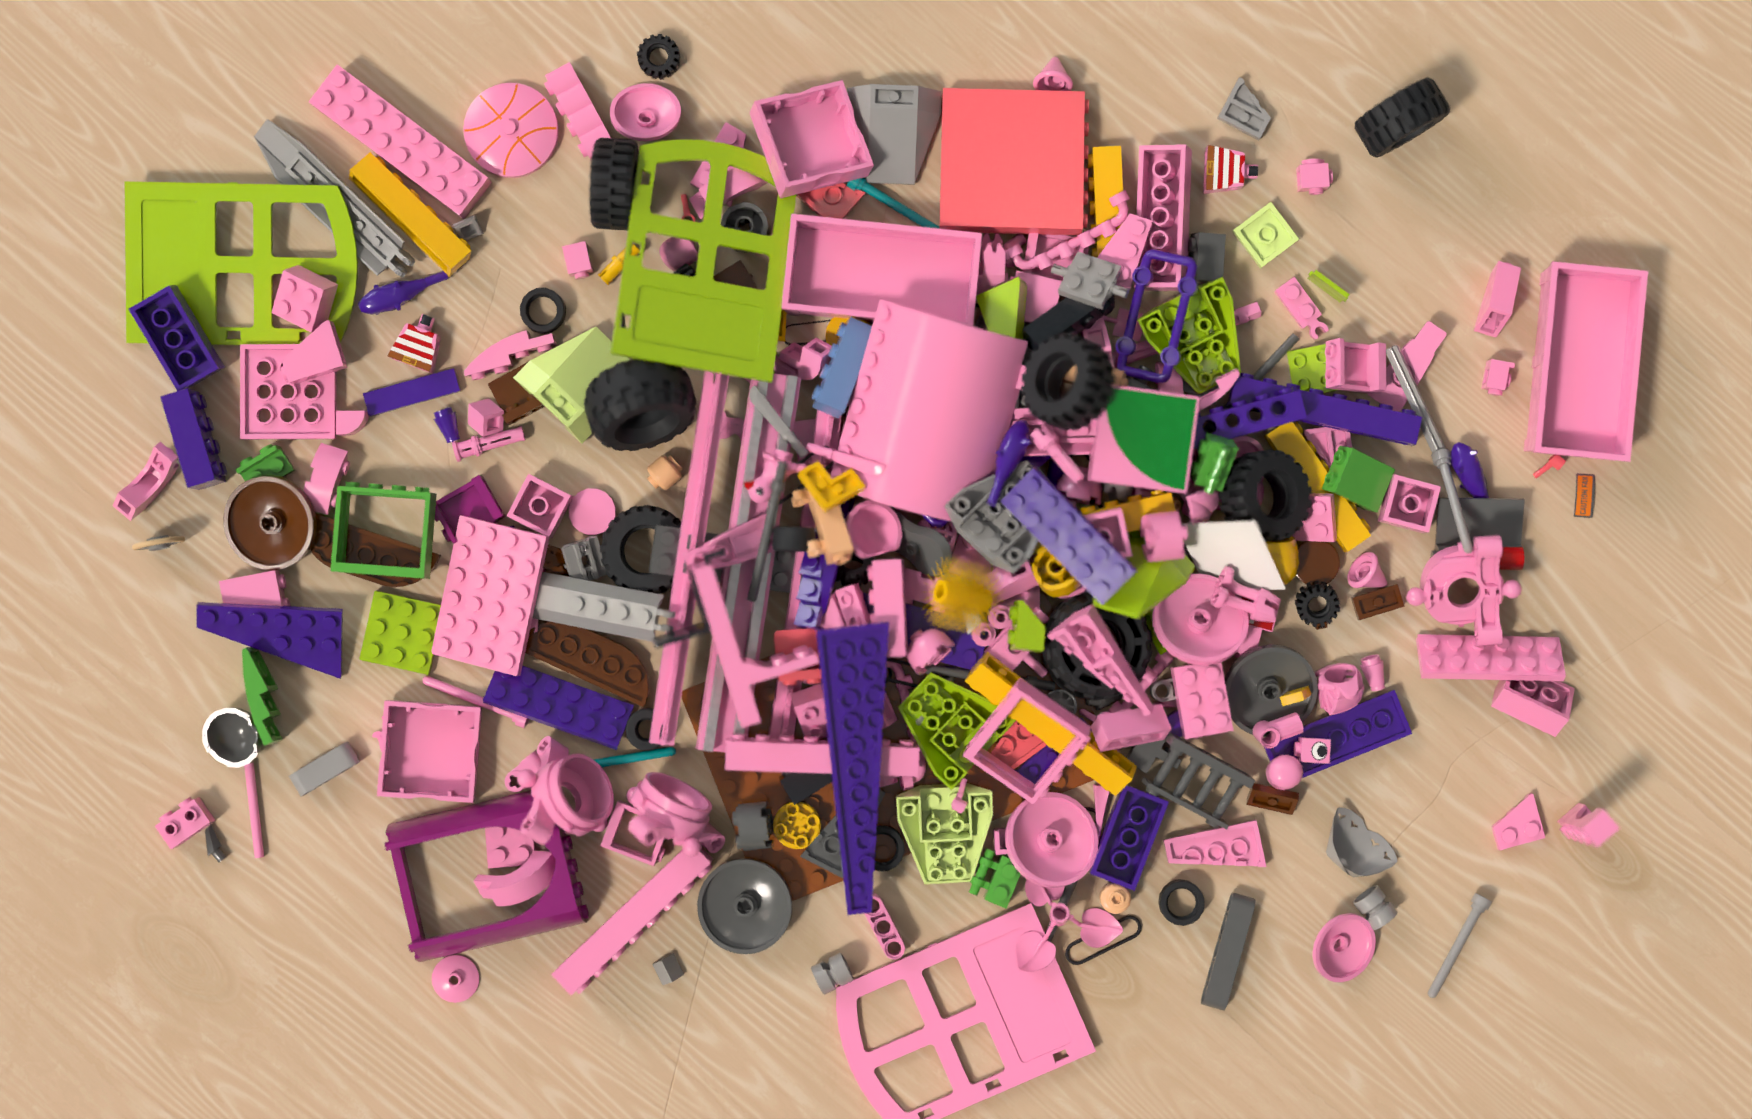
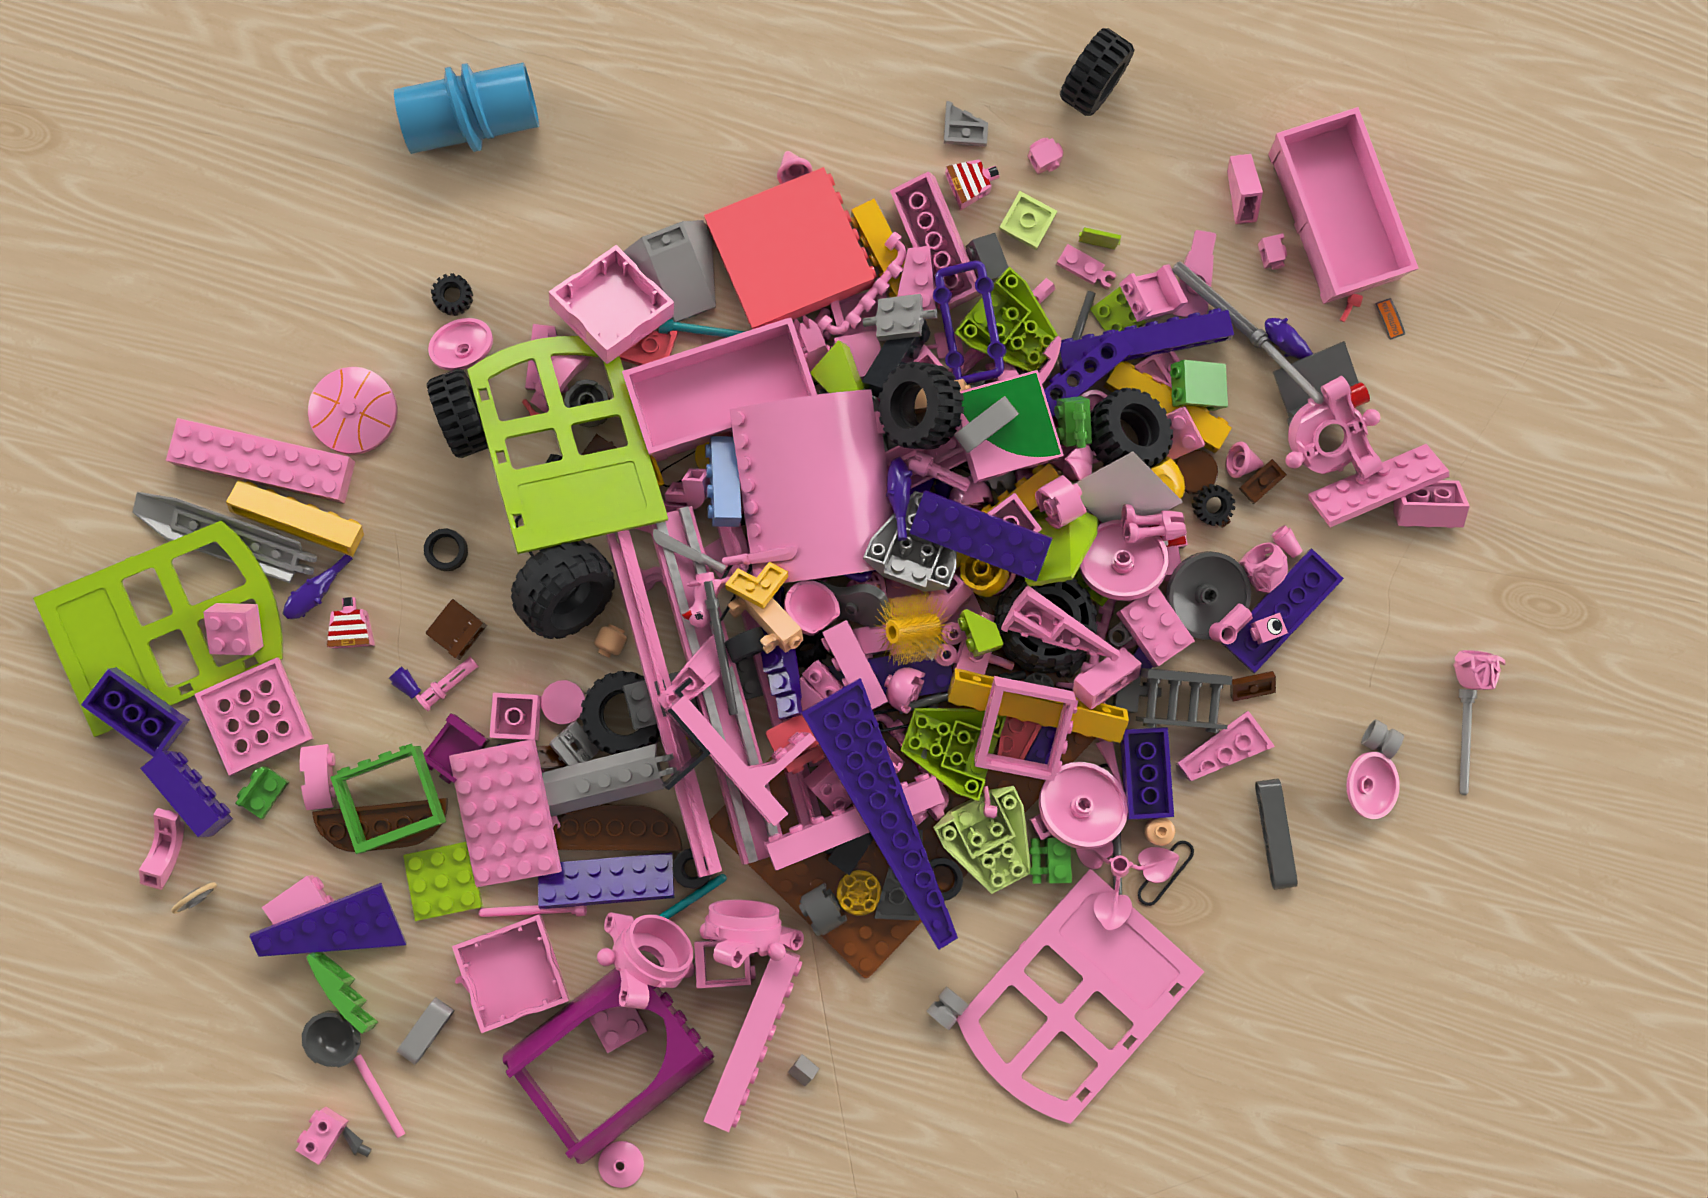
camera: 30 degrees left, 5 degrees down
(269, 522) = (285, 836): reddish brown dish -> none
(314, 356) = (263, 674): bright pink slope -> none
(350, 422) = (319, 718): bright pink brick -> none
(411, 392) = (362, 669): dark purple tile -> none
(468, 228) = (351, 508): light grey slope -> none
(485, 417) = (435, 662): bright pink panel -> none
(499, 355) = (424, 603): bright pink slope -> none
(520, 884) = (641, 1054): bright pink arch -> none
(530, 762) = (604, 941): bright pink piece -> none
(564, 374) = (486, 596): yellowish green wedge -> none
(577, 106) = (399, 365): bright pink brick -> none
(578, 260) = (457, 493): bright pink brick -> none
(616, 265) = (491, 486): yellow pin -> none
(677, 252) = (539, 448): bright pink helmet -> none
(744, 906) = (845, 984): dark grey dish -> none
(885, 937) = (982, 952): bright pink beam -> none
(1123, 430) = (986, 424): none -> light grey beam
(1199, 904) = (1234, 809): black tyre -> none
(1284, 772) = (1253, 658): bright pink helmet -> none
(1295, 695) = (1232, 589): yellow tile -> none
(1353, 848) = (1339, 698): light grey piece -> none
(1409, 504) = (1251, 387): bright pink brick -> none
(1500, 883) = (1477, 669): none -> bright pink piece
(1519, 825) = (1468, 615): bright pink wing -> none
(1587, 826) = (1526, 590): bright pink arch -> none

